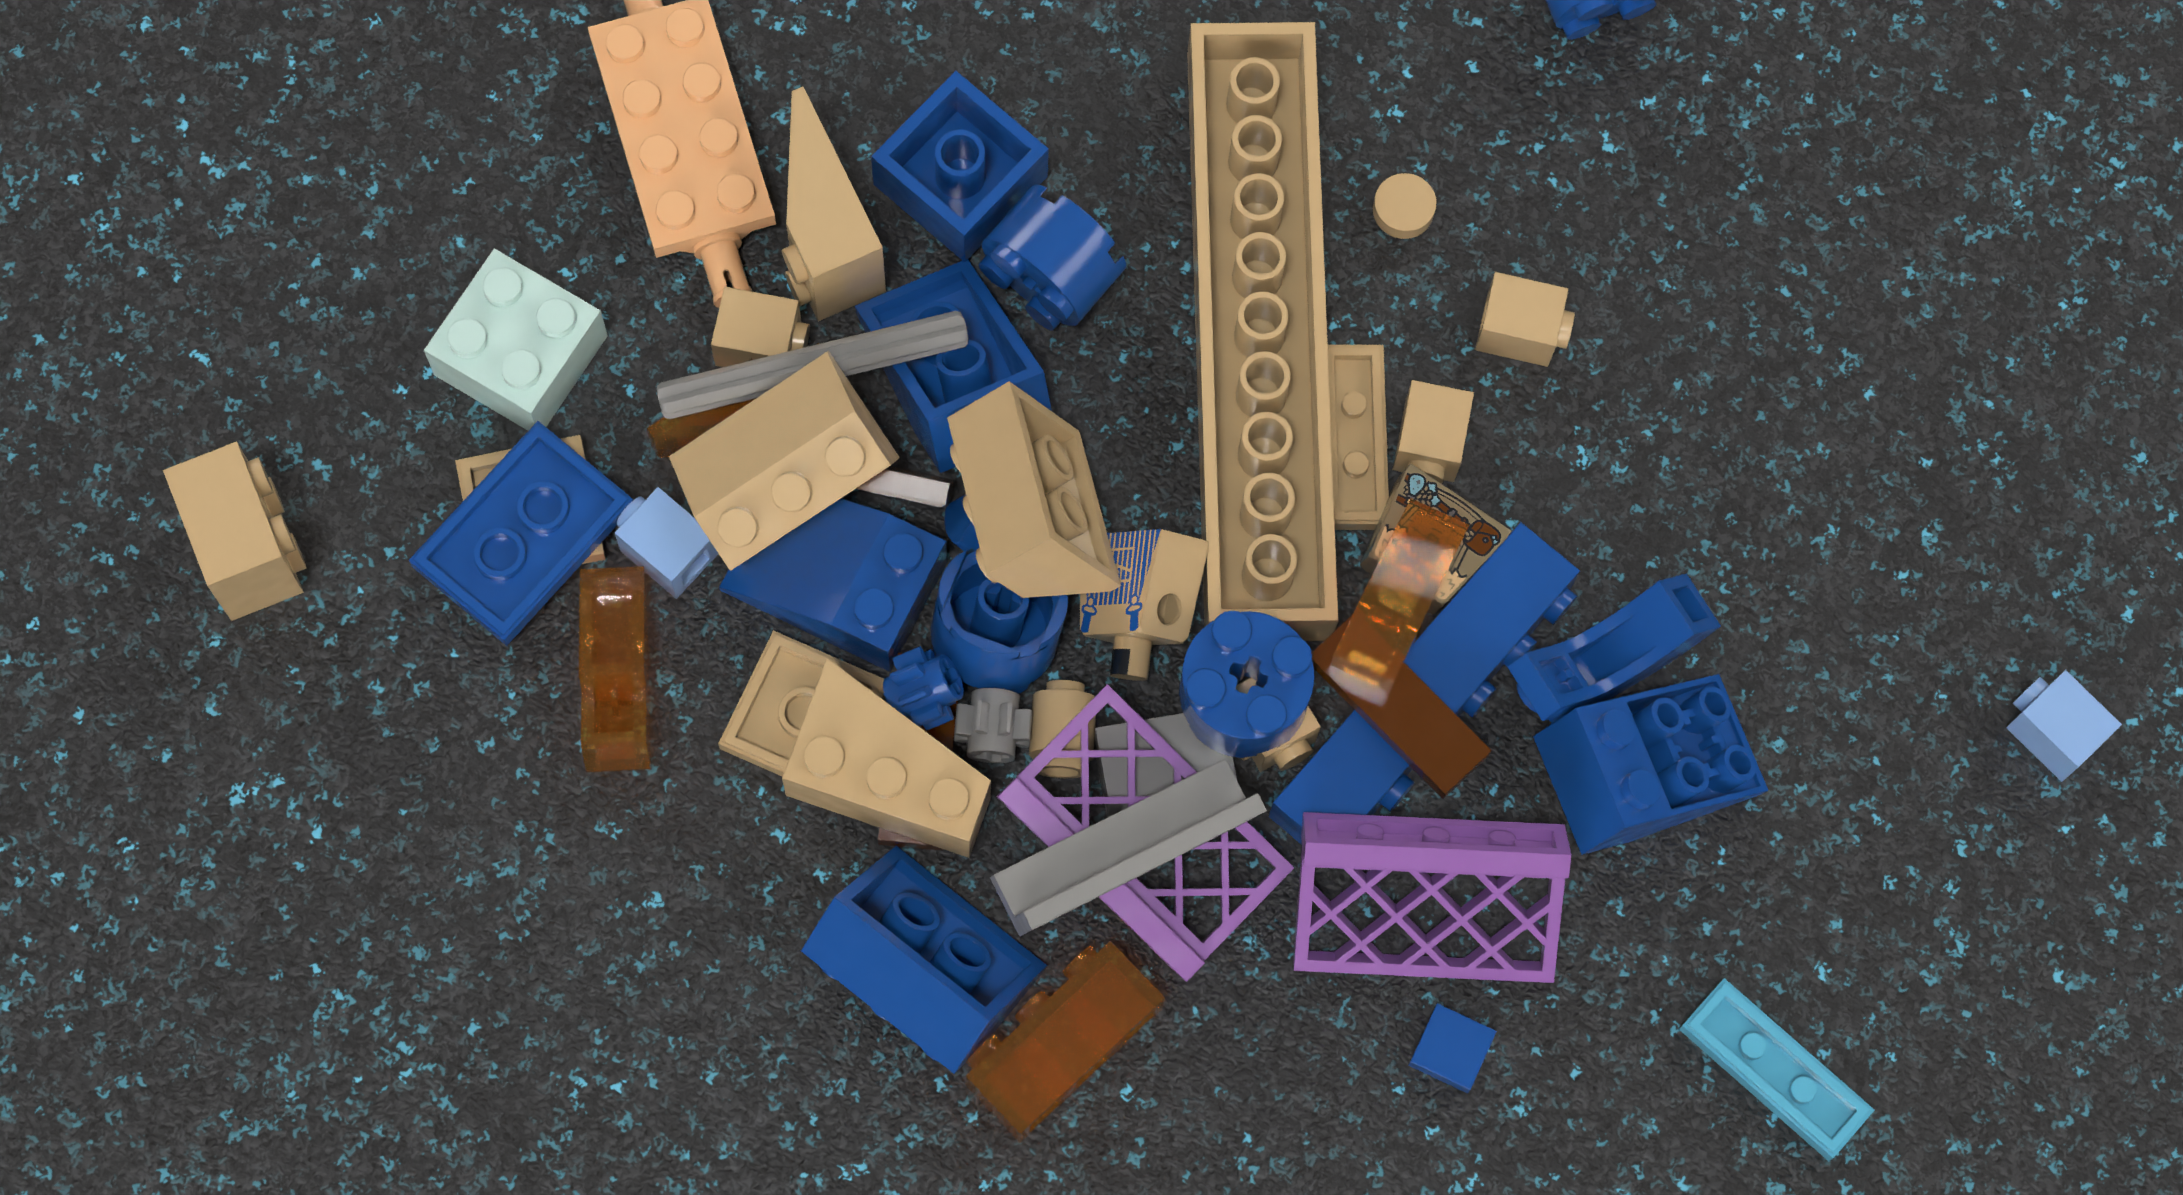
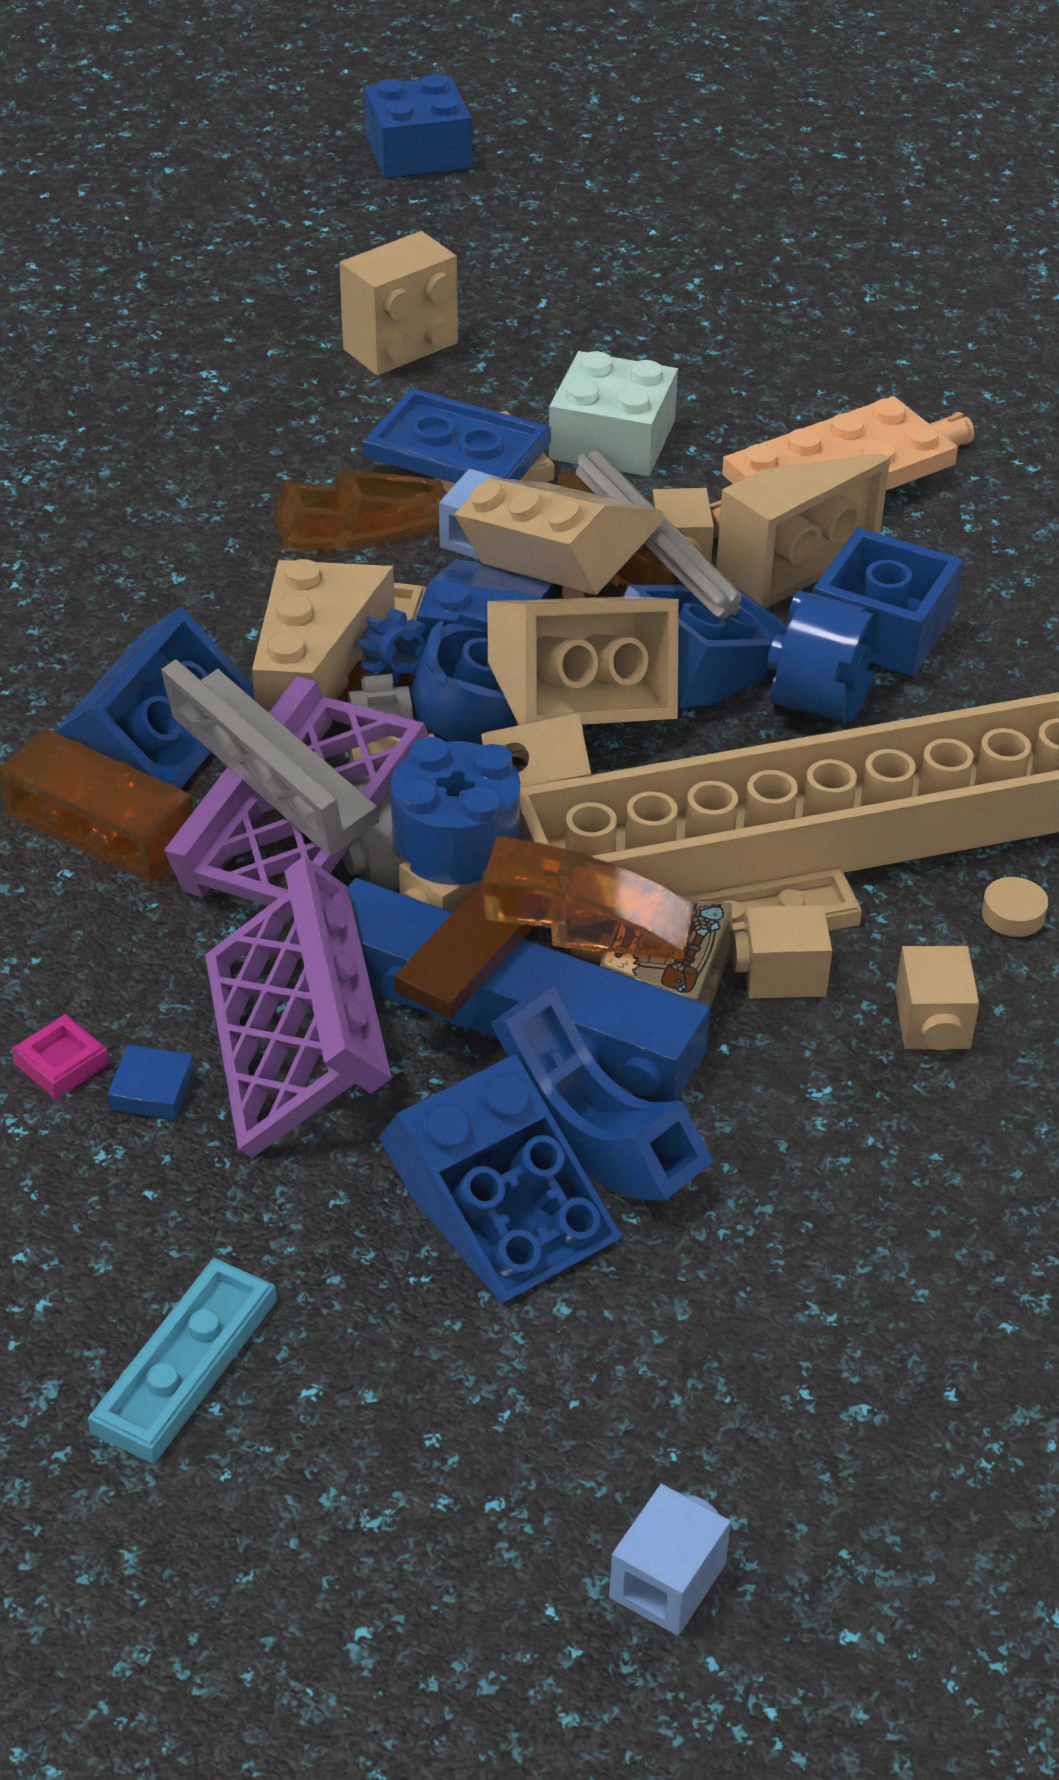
camera: 80 degrees right, 30 degrees down
(1396, 1128) = (60, 1056): none -> dark pink tile

